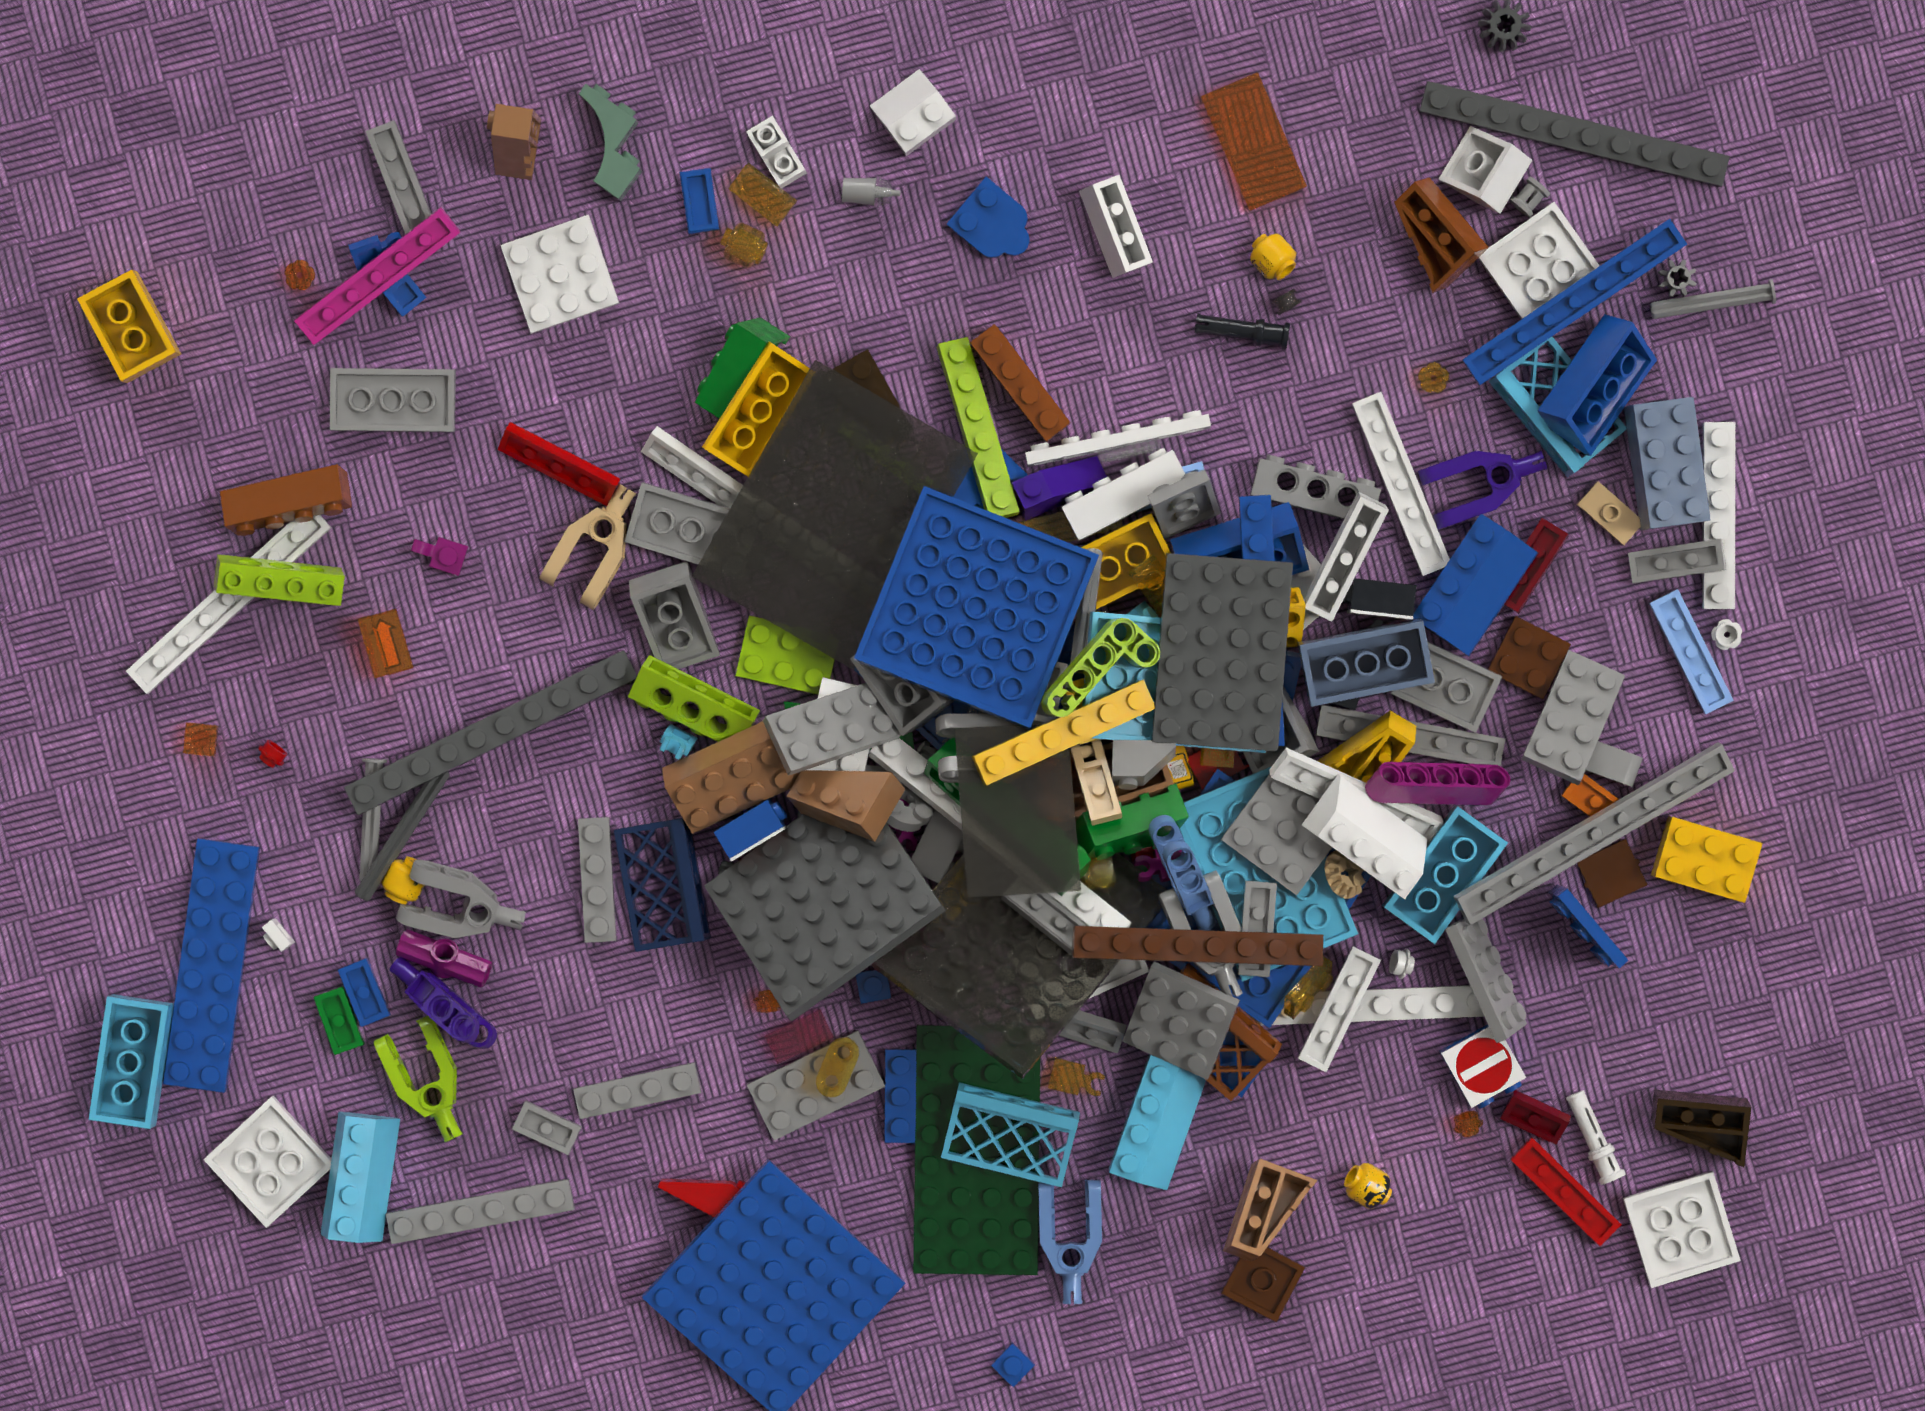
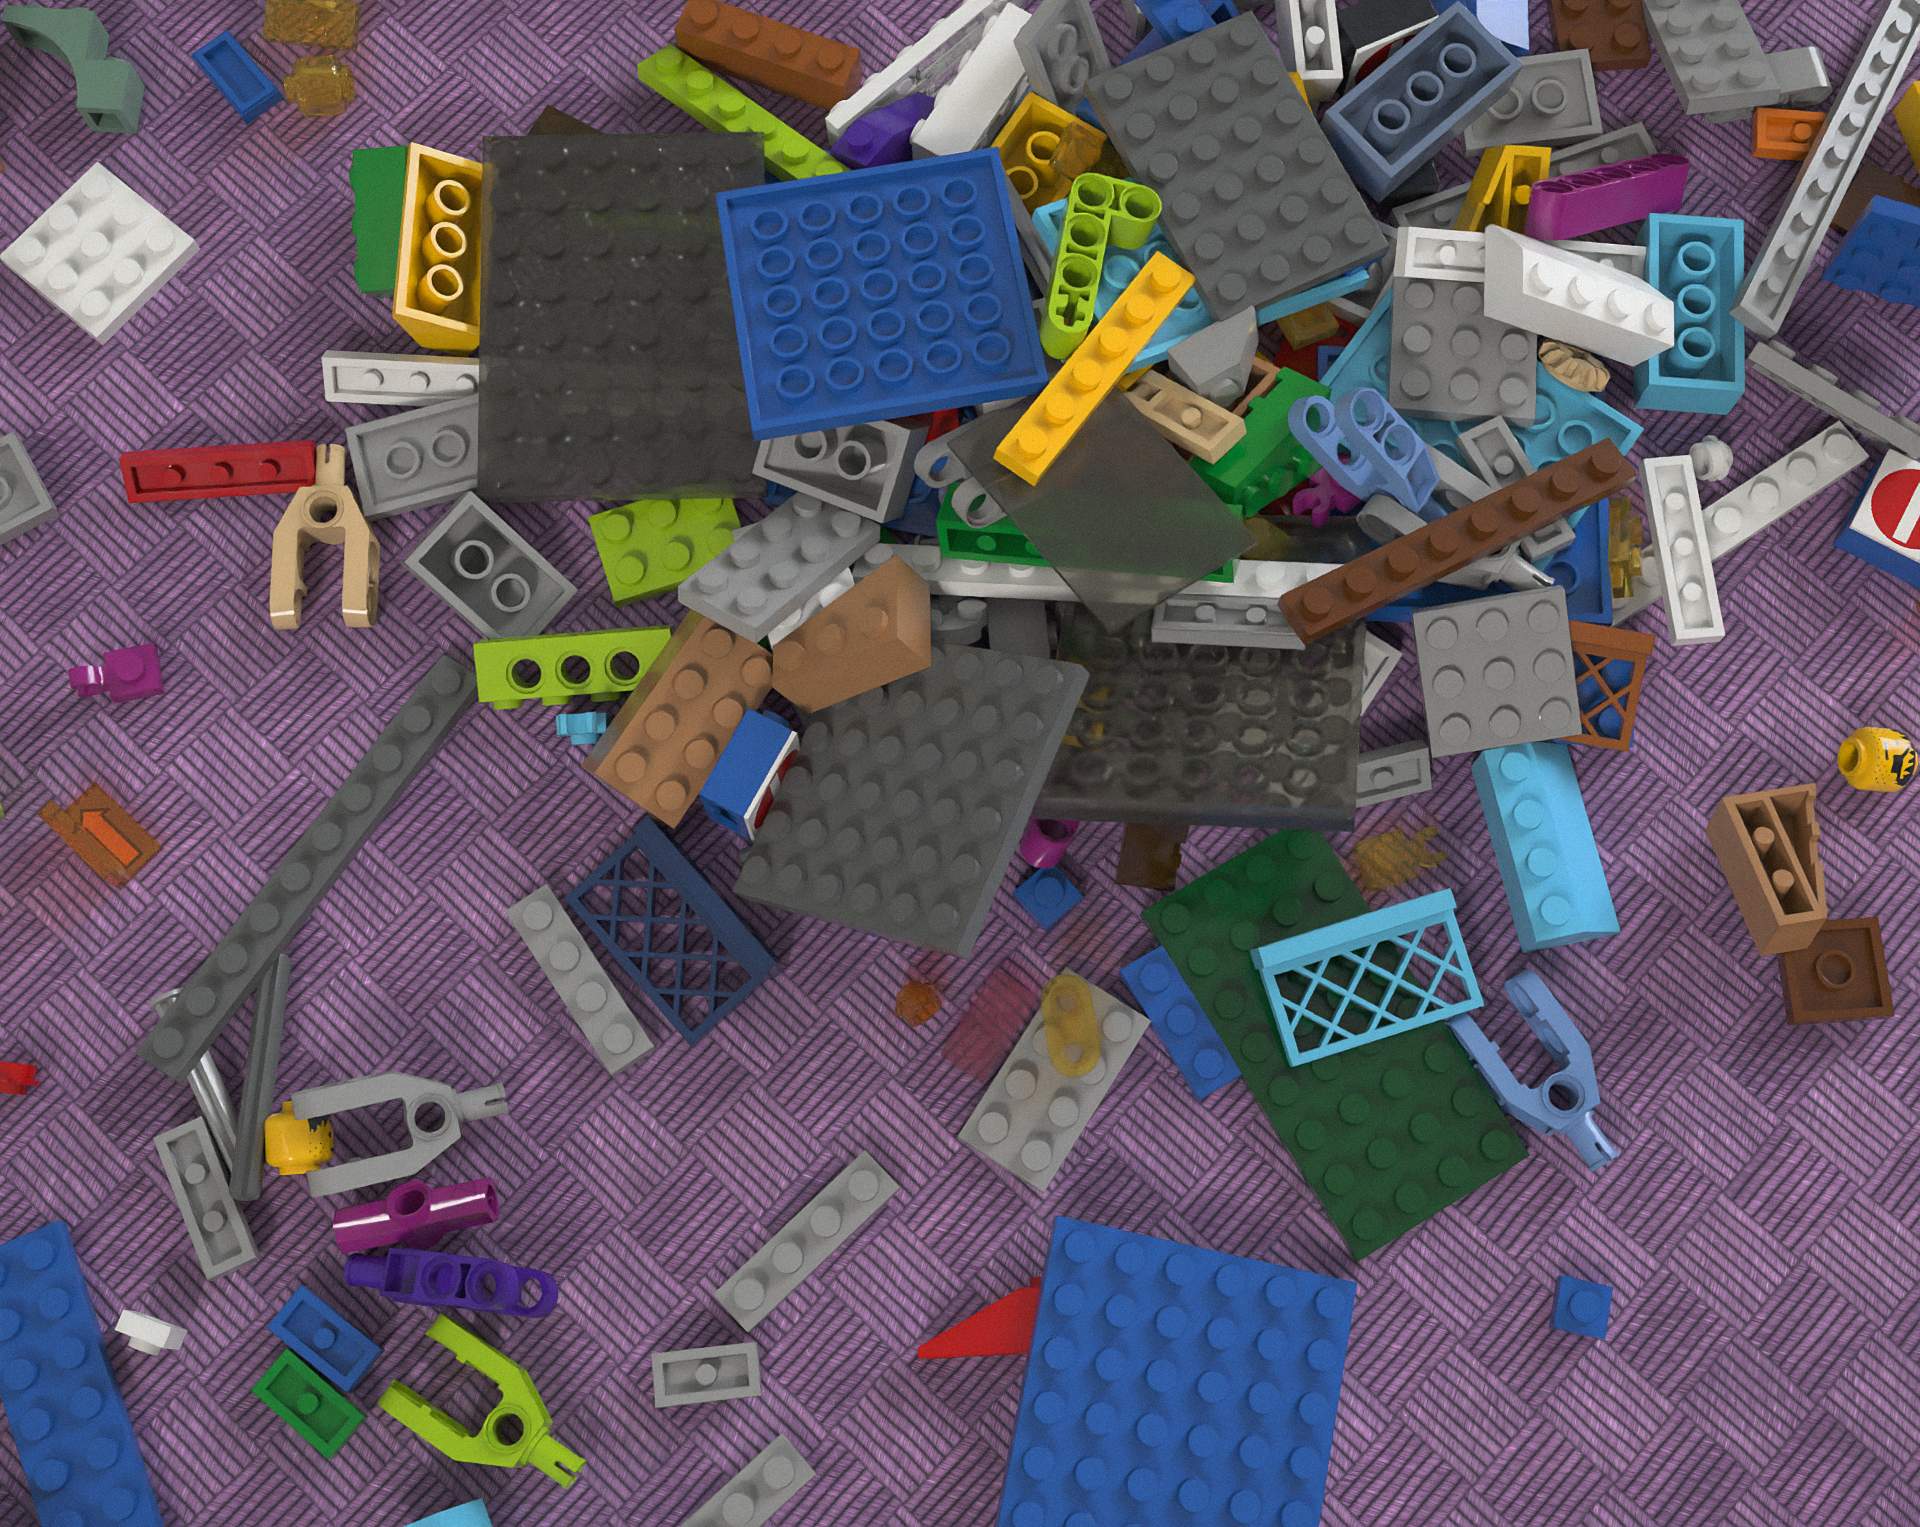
camera: 30 degrees left, 15 degrees down
(340, 881) = (203, 1196): none -> light grey plate

